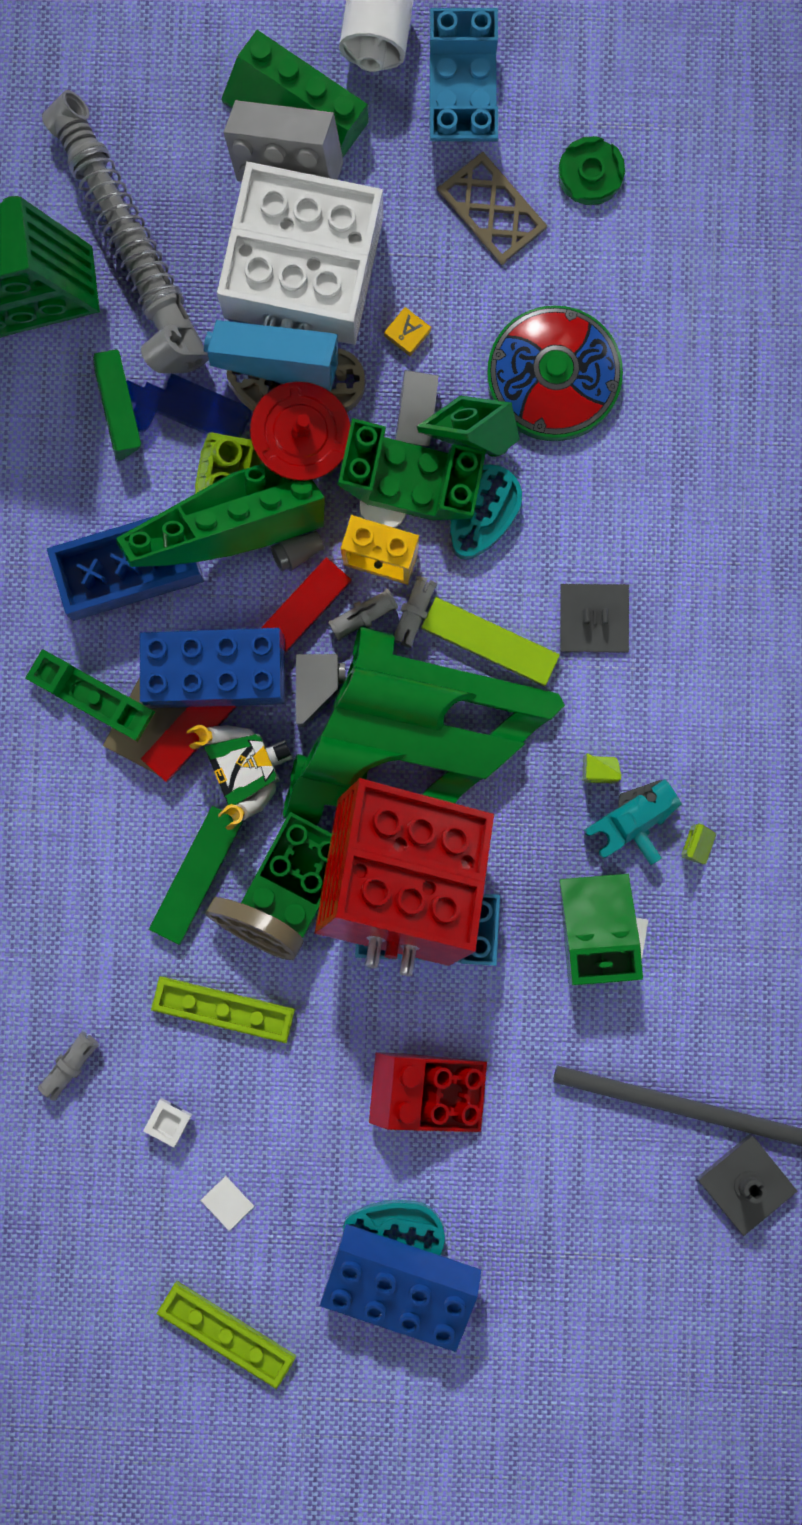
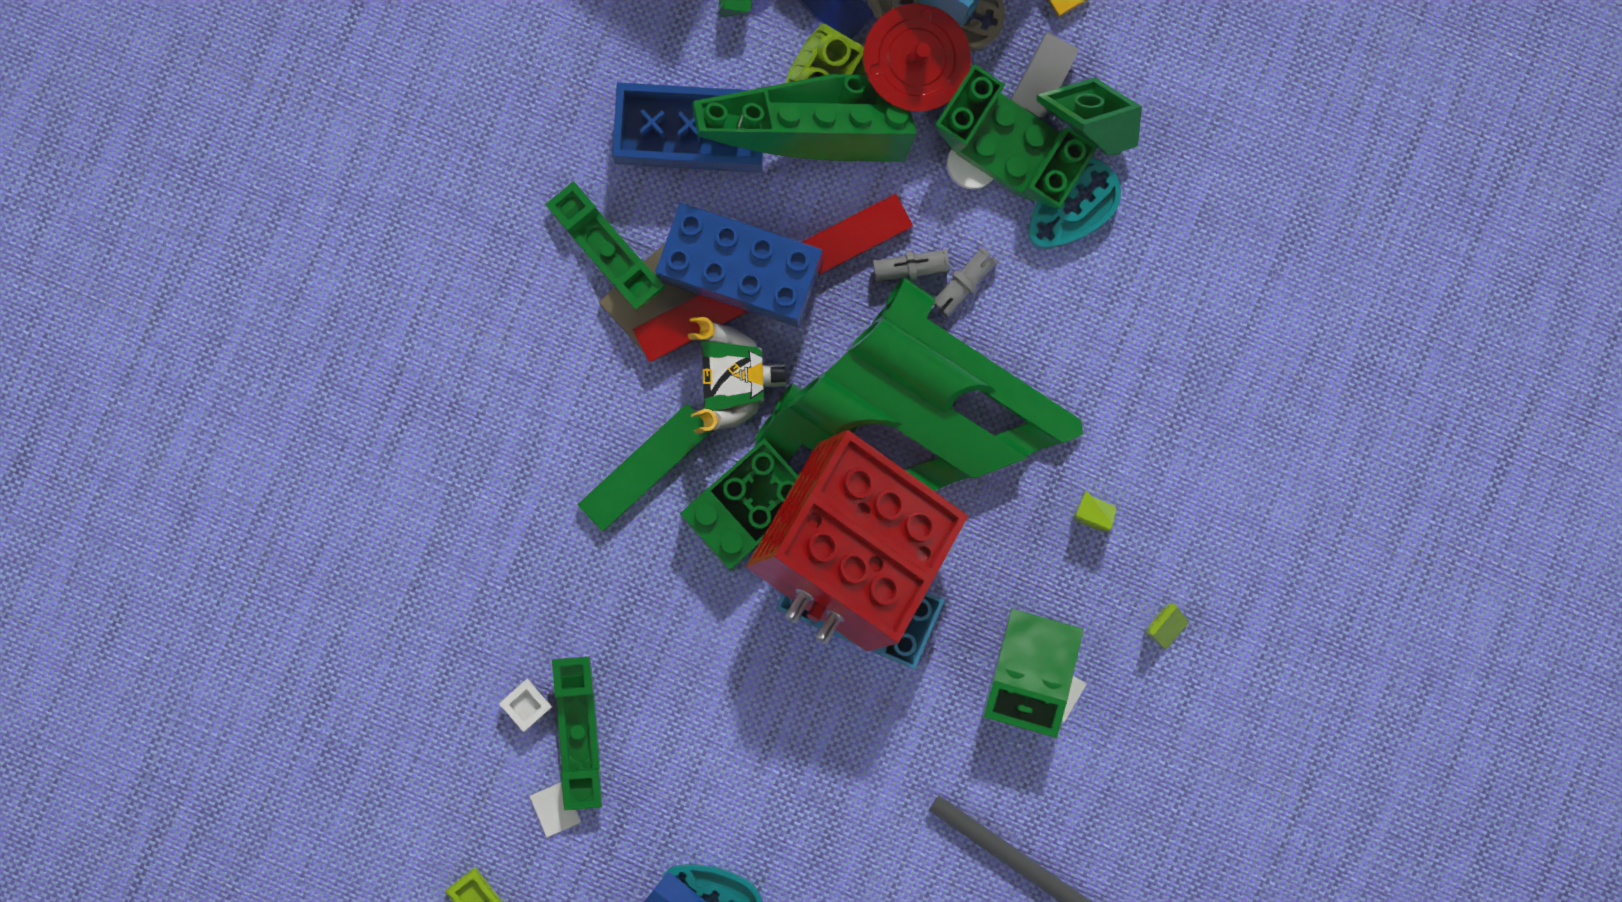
camera: 20 degrees right, 0 degrees up
(68, 1066) = (446, 611): light grey pin -> none
(223, 1009) = (622, 613): lime tile -> none
(223, 1130) = (577, 733): none -> green slope
(255, 928) = (686, 542): dark tan piece -> none
(296, 550) = (867, 175): dark grey cone -> none
(316, 684) = (838, 319): light grey slope -> none
(374, 542) = (947, 197): yellow window -> none
(427, 1093) = (798, 773): red slope -> none
(490, 641) = (1031, 341): lime tile -> none
(556, 372) = (1201, 89): dish -> none
(594, 618) = (1147, 356): dark grey piece -> none
(636, 814) = (1114, 571): teal piece -> none

